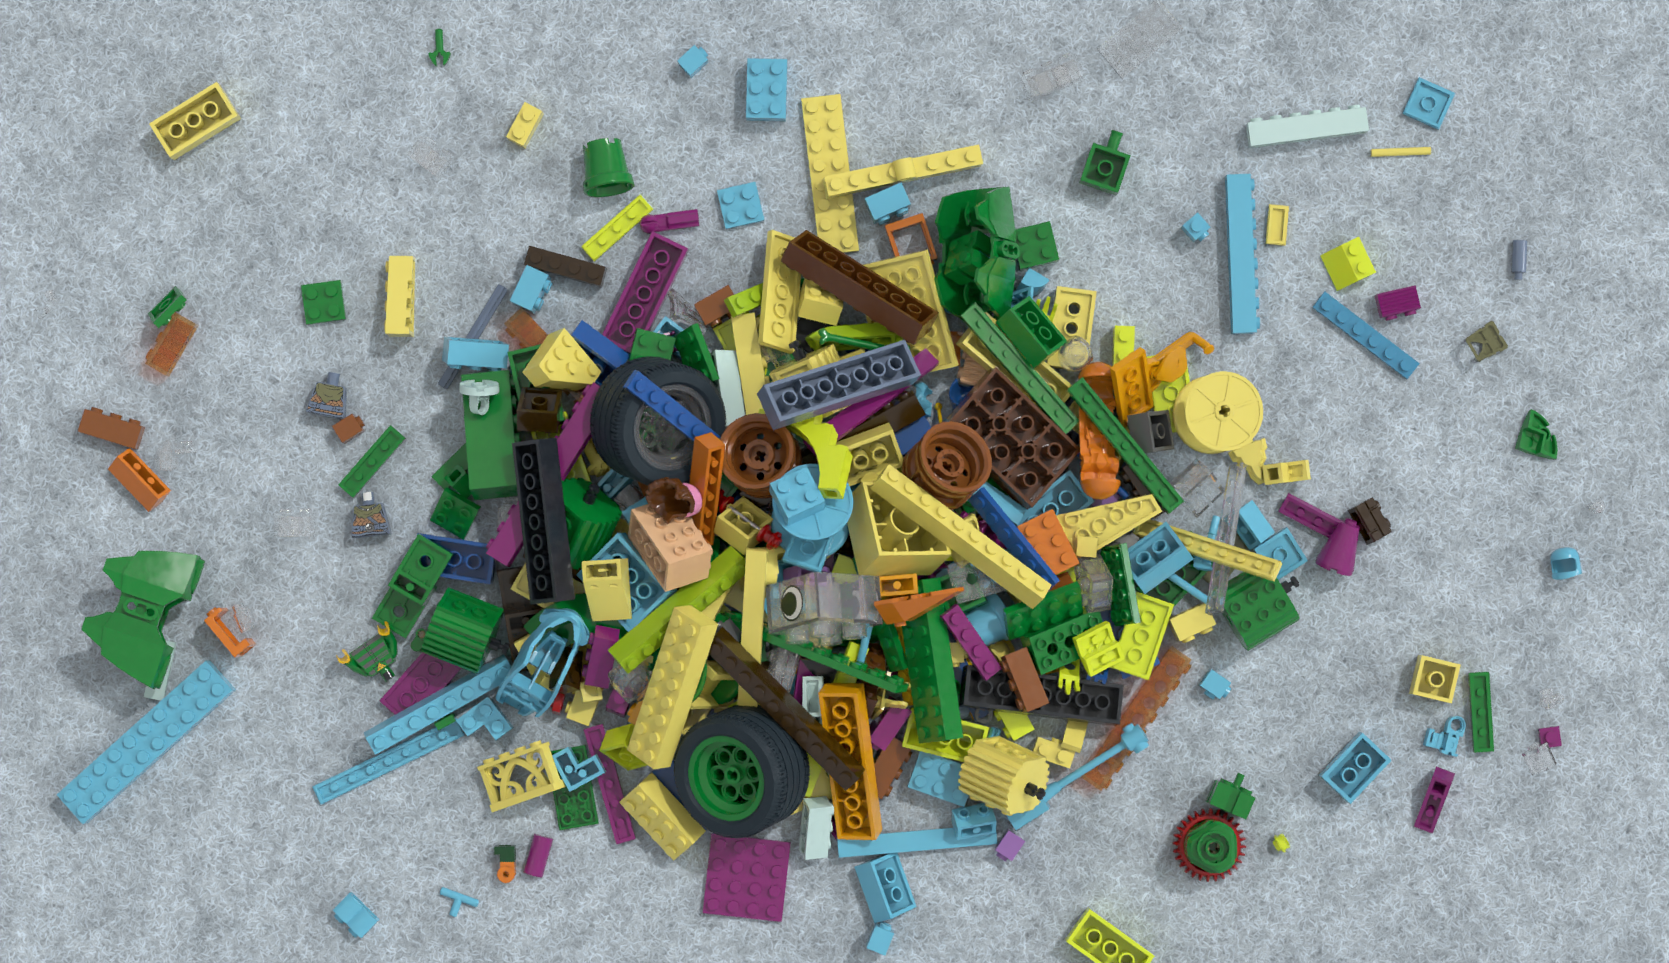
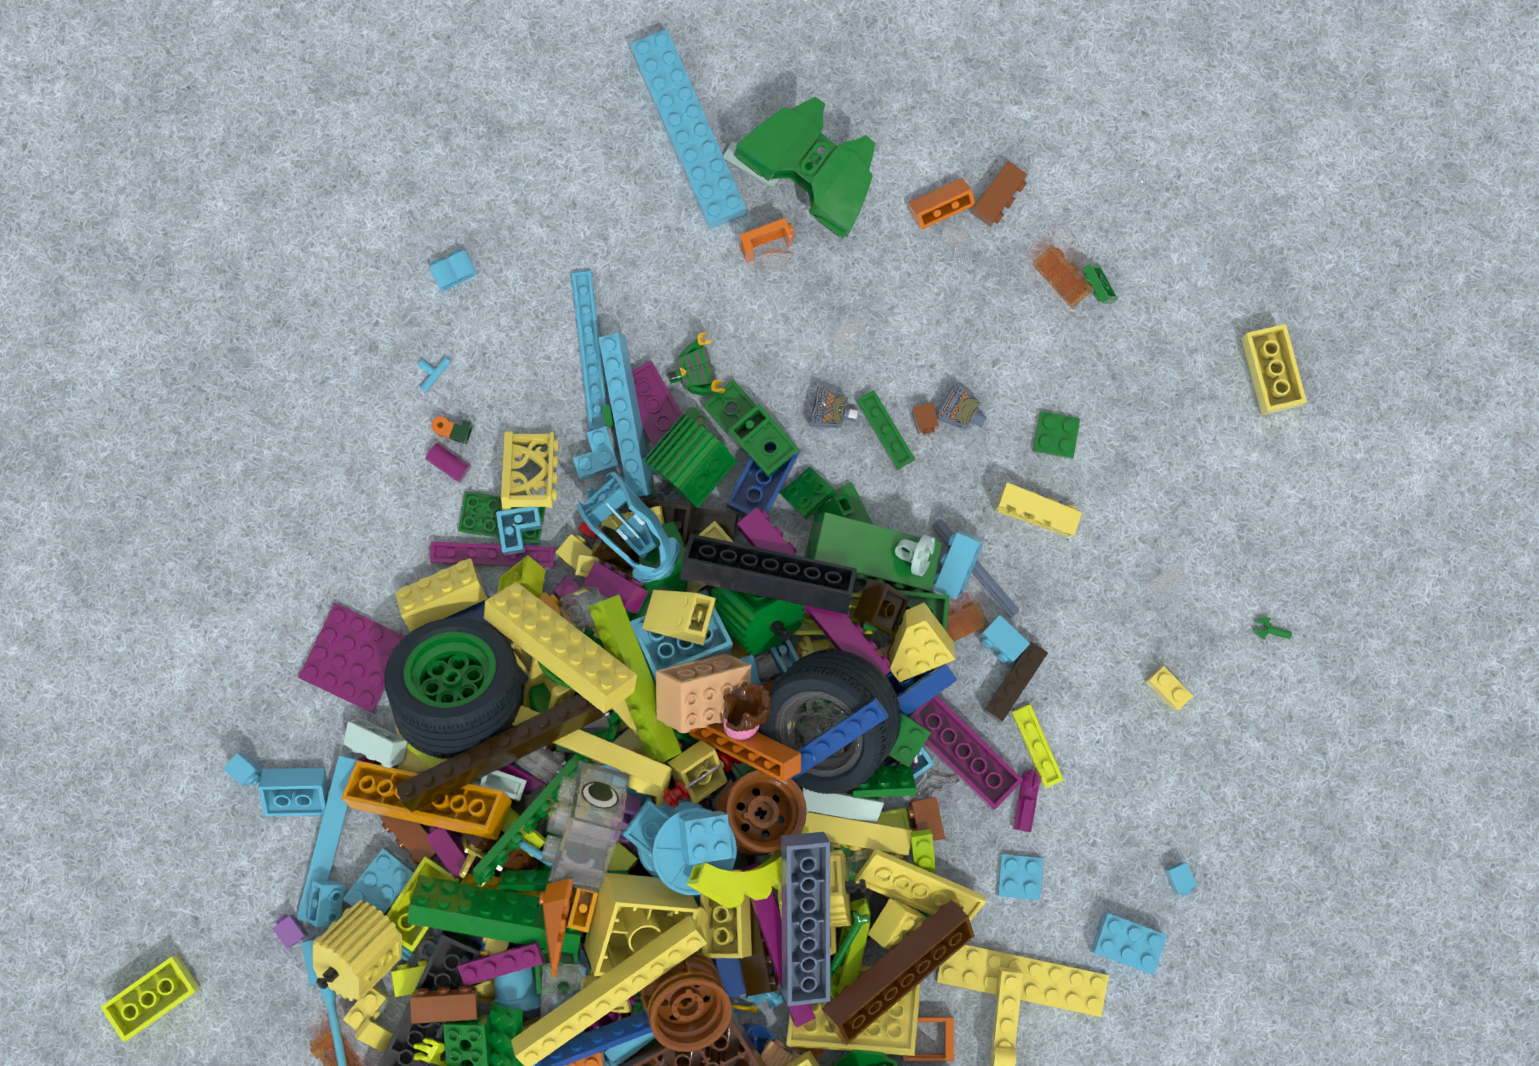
camera: 100 degrees right, 5 degrees down
(605, 169) = (1100, 754): green piece -> none
(887, 204) = (974, 1028): medium azure brick -> none

